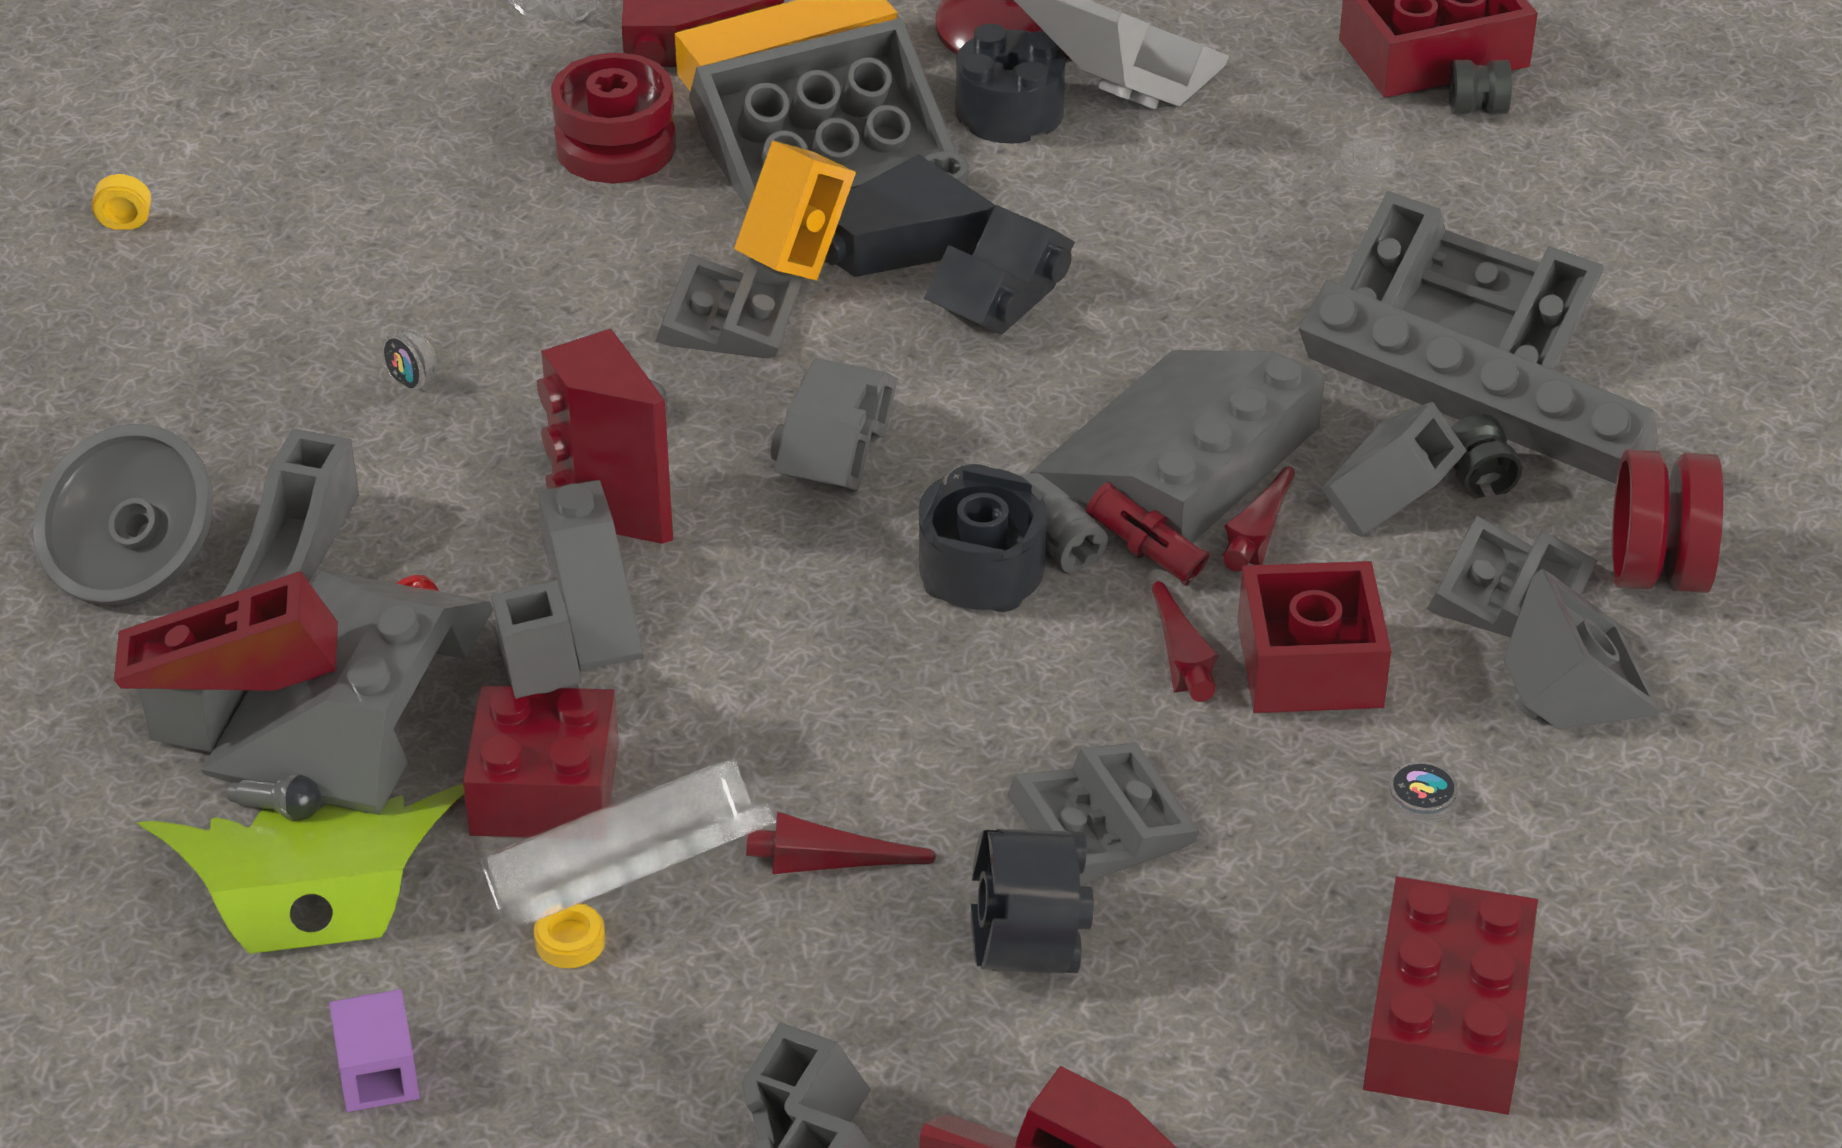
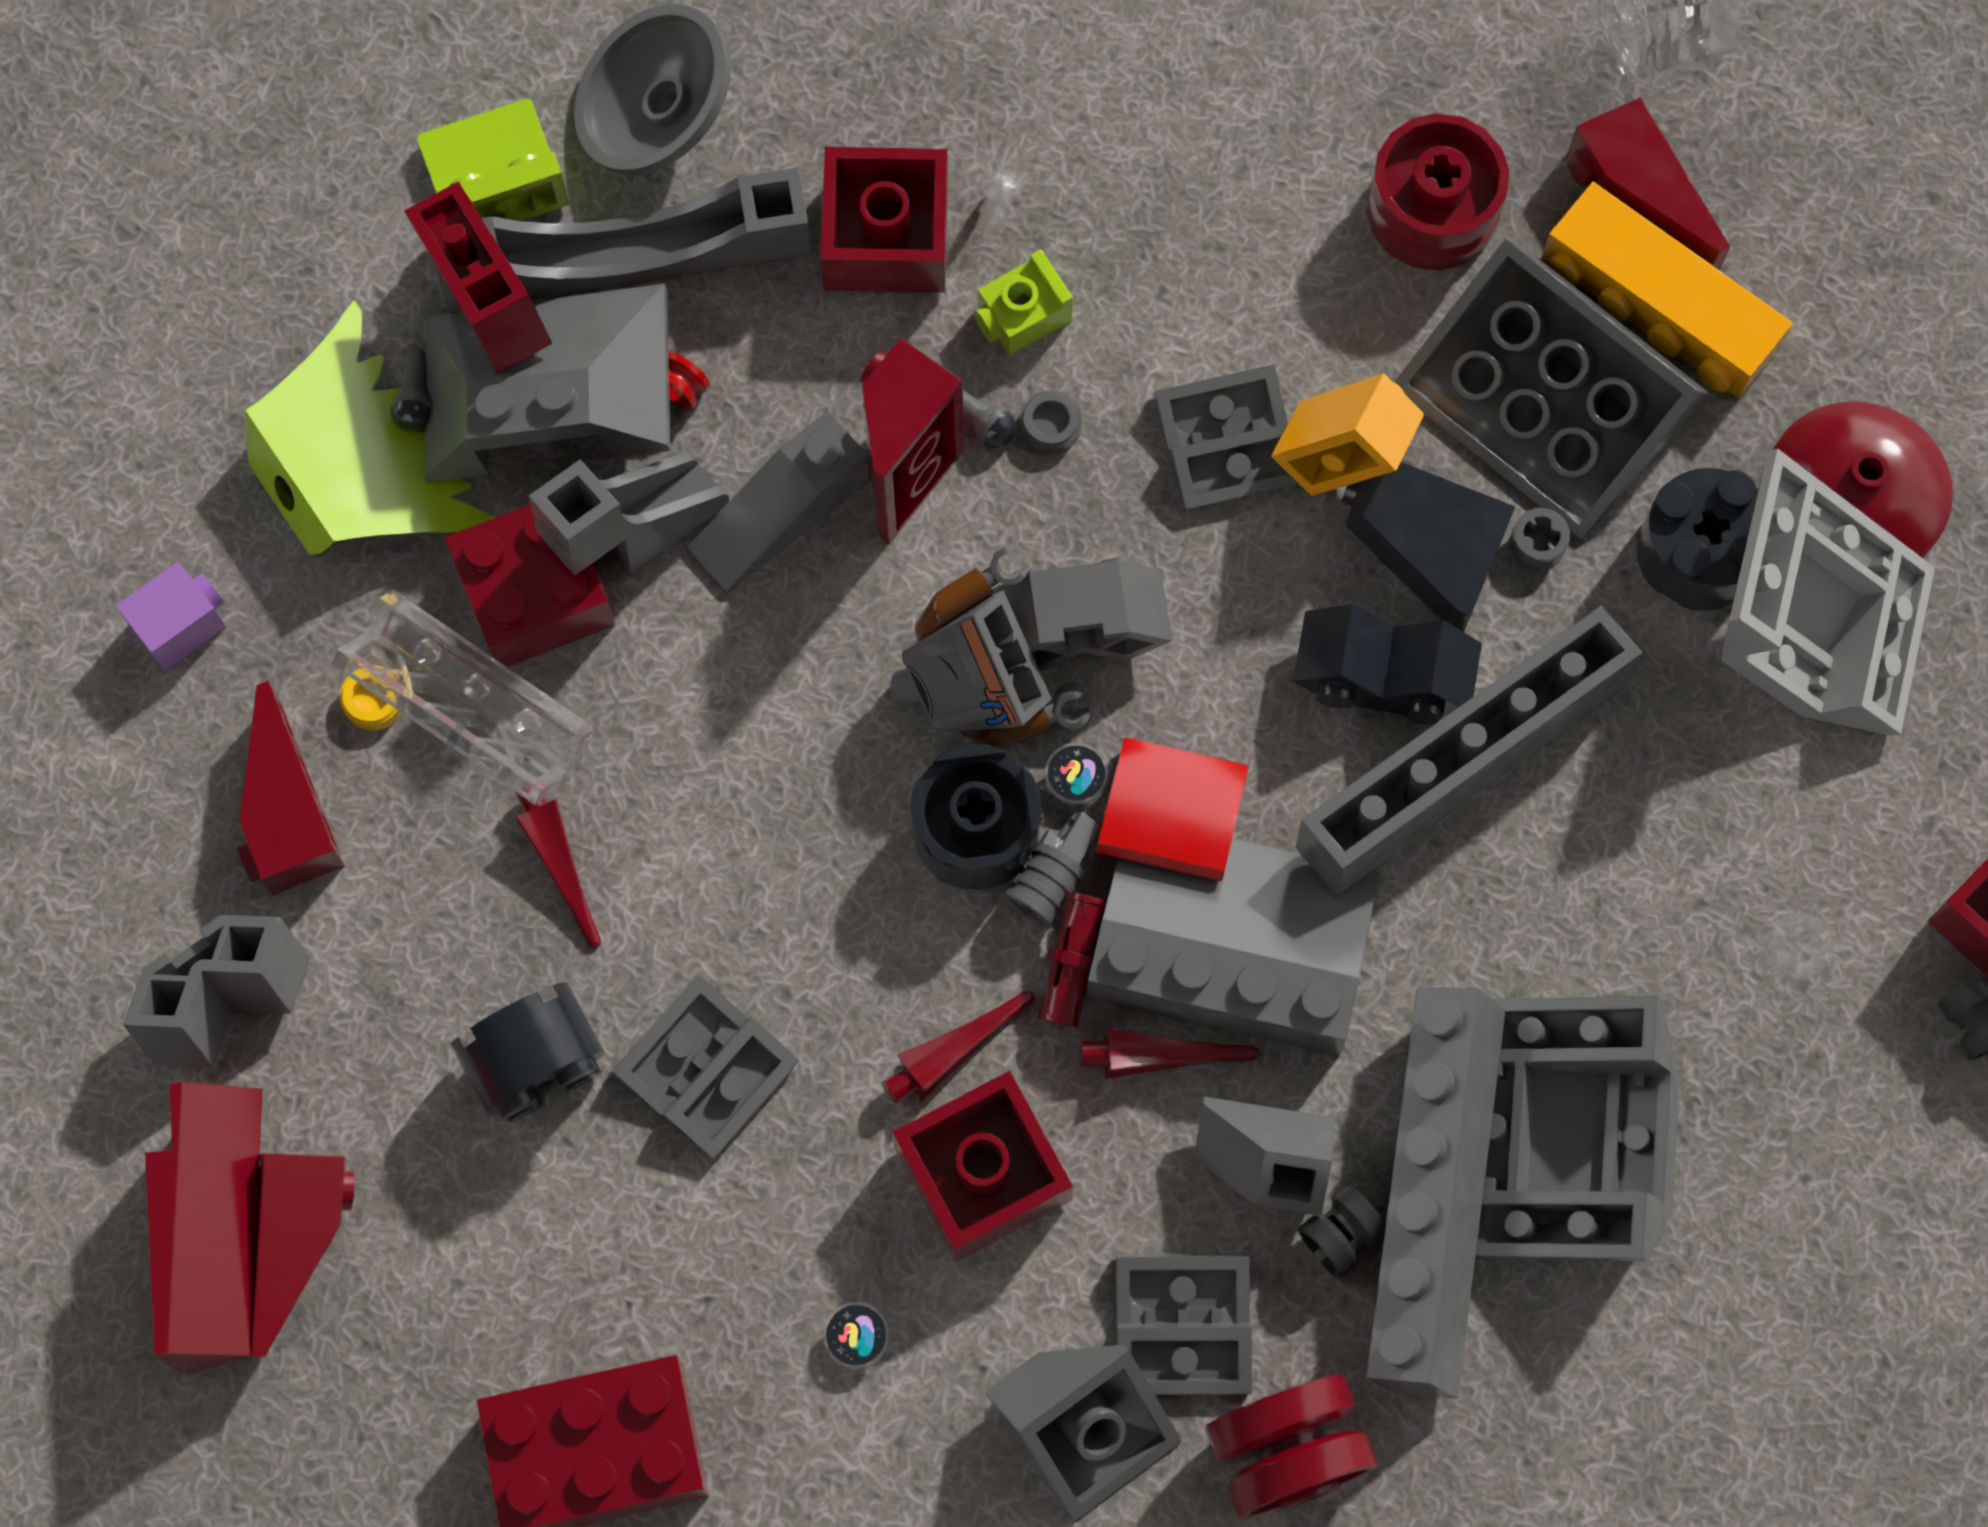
camera: 65 degrees right, 30 degrees up
(75, 665) = (498, 161): none -> lime bracket
(391, 408) = (884, 219): none -> dark red brick
(515, 368) = (1023, 324): none -> lime brick
(639, 1024) = (280, 807): none -> dark red slope
(840, 481) = (977, 667): none -> torso
(1049, 429) = (1172, 809): none -> slope
(1112, 247) = (1467, 750): none -> dark grey brick

